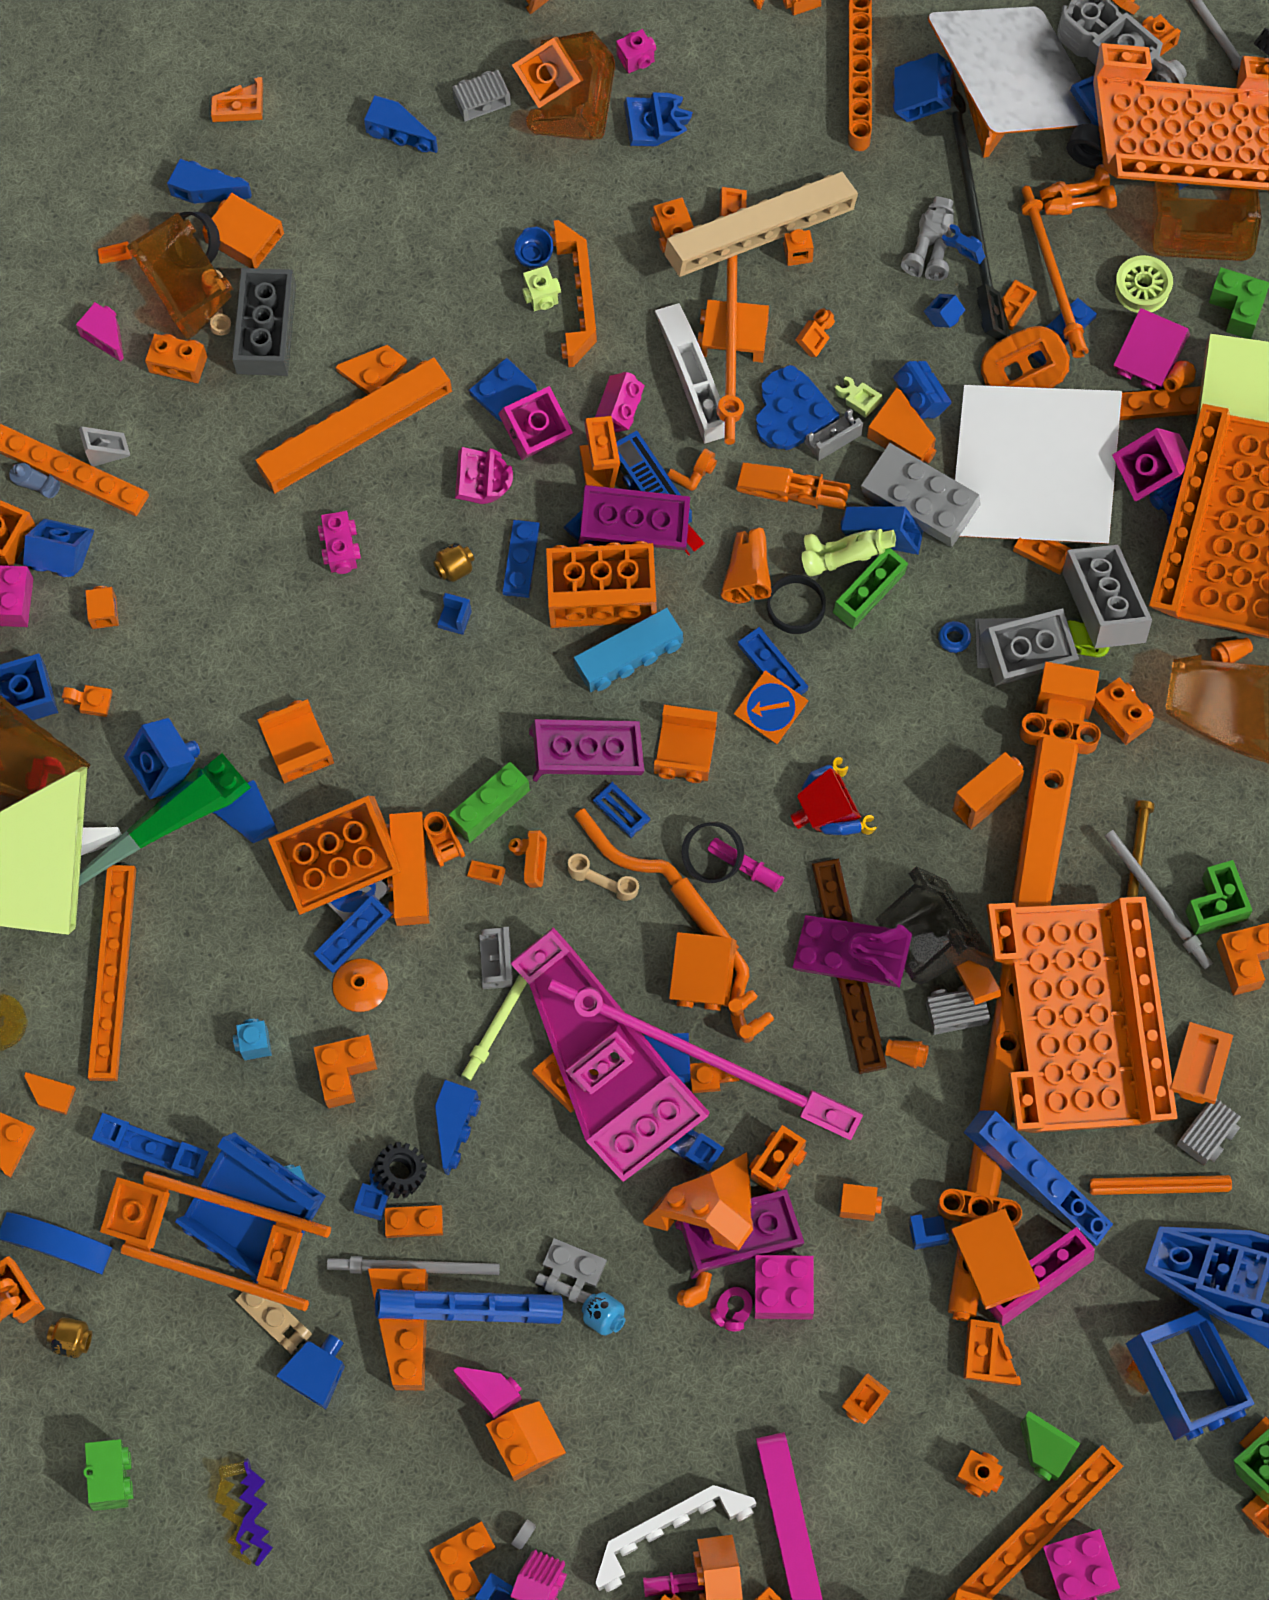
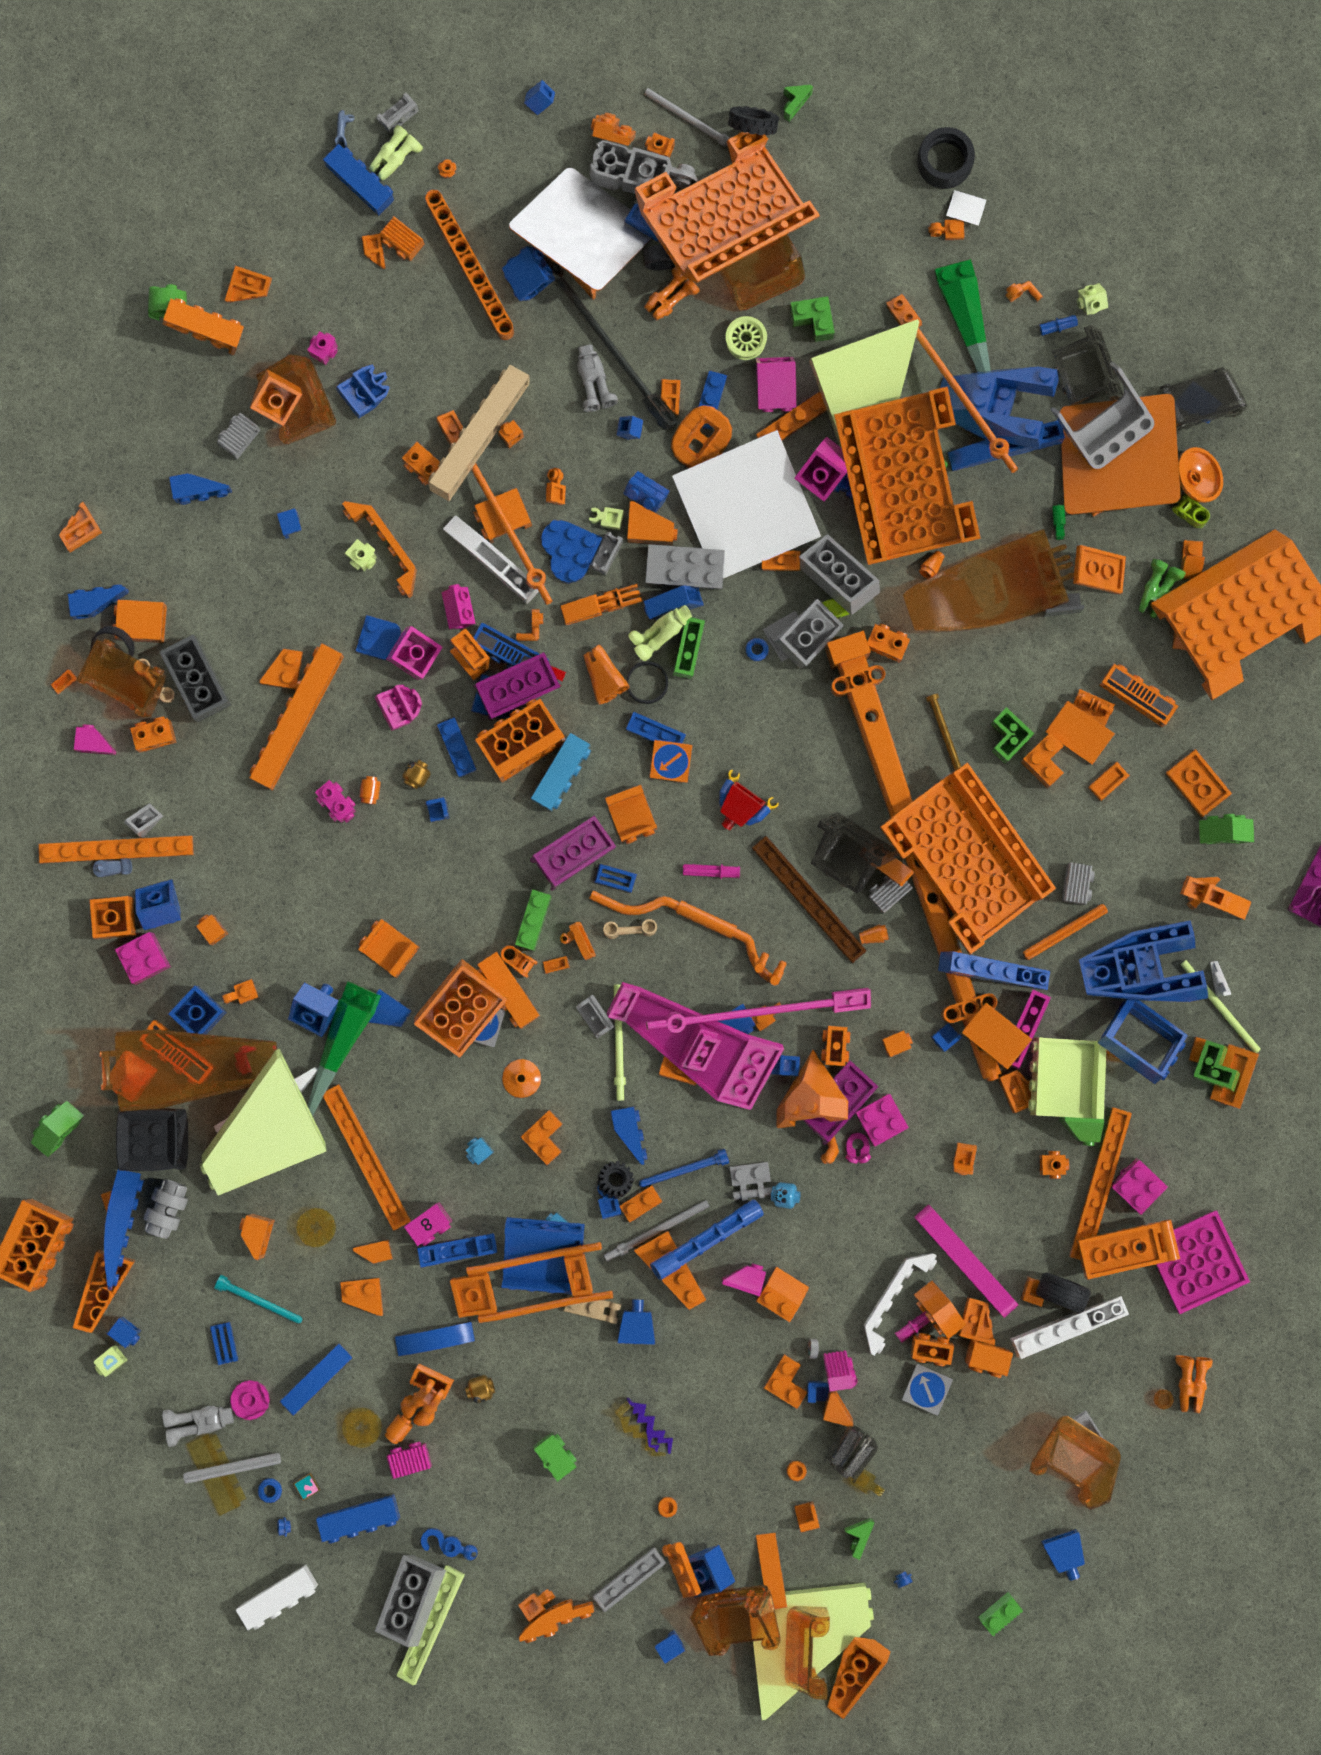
camera: 30 degrees left, 15 degrees up
(134, 1091) = (428, 1224): none -> dark pink brick
(353, 933) = (500, 1051): blue plate -> none
(387, 551) = (369, 790): none -> orange brick
(480, 211) = (289, 522): none -> blue panel
(530, 244) = (335, 526): blue hair -> none
(548, 1219) = (719, 1158): none -> blue piece
(685, 852) = (688, 894): black tyre -> none
(702, 970) = (725, 955): orange brick -> none
(853, 950) = (808, 892): magenta plate -> none
(967, 246) = (622, 375): blue plate -> none
(988, 790) = (835, 742): orange brick -> none
(1060, 1369) = (1067, 1078): none -> yellowish green panel
(1073, 331) = (720, 398): orange bar -> none
(1180, 375) = (803, 392): orange cone -> none
(1191, 942) = (1005, 770): light grey bar -> none
(1201, 1064) = (1052, 844): orange piece -> none

